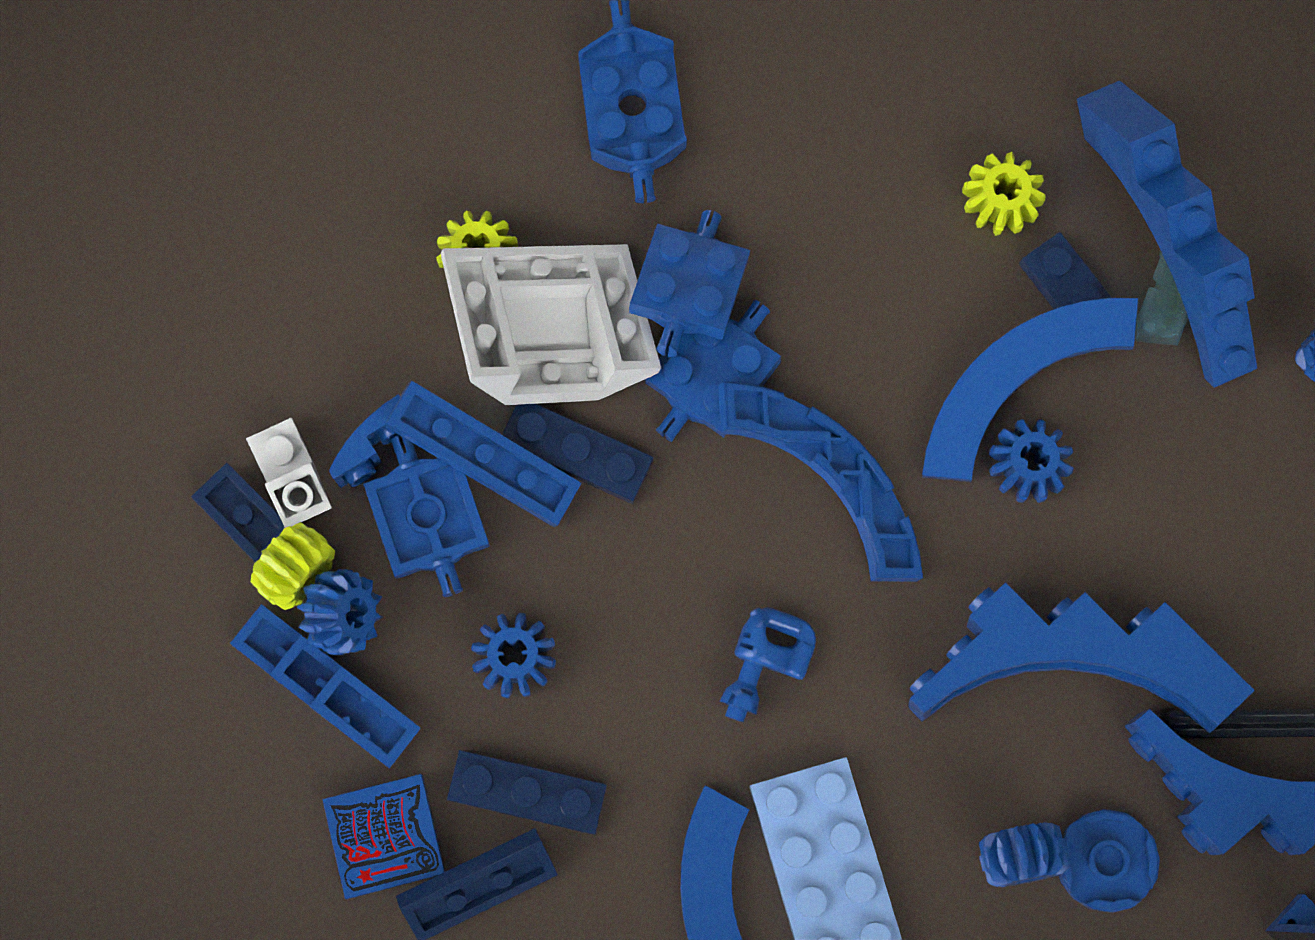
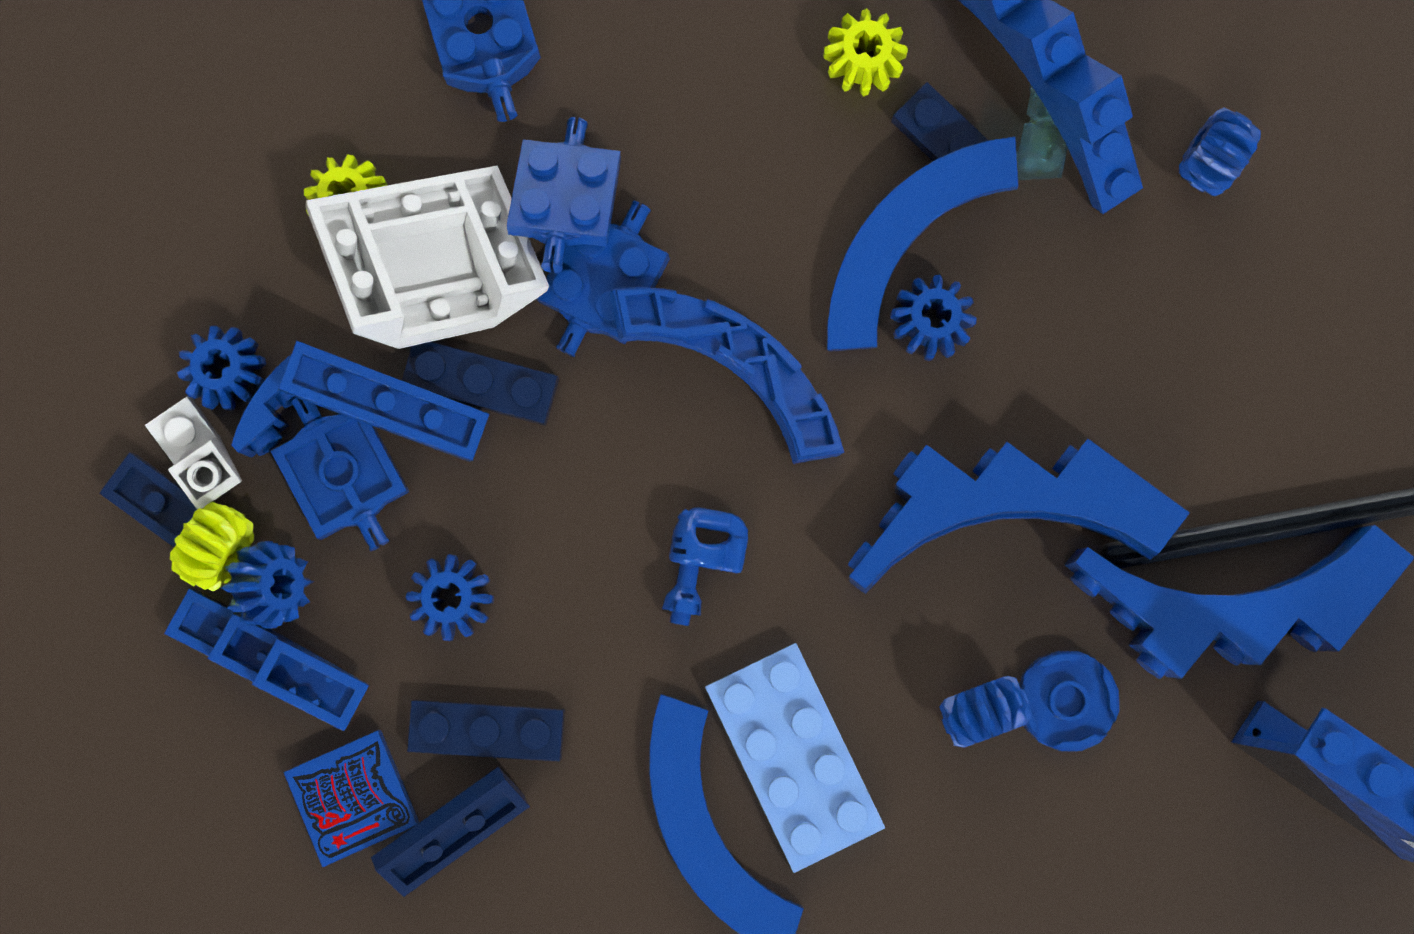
camera: 10 degrees left, 5 degrees up
(316, 385) = (209, 357): none -> blue gear

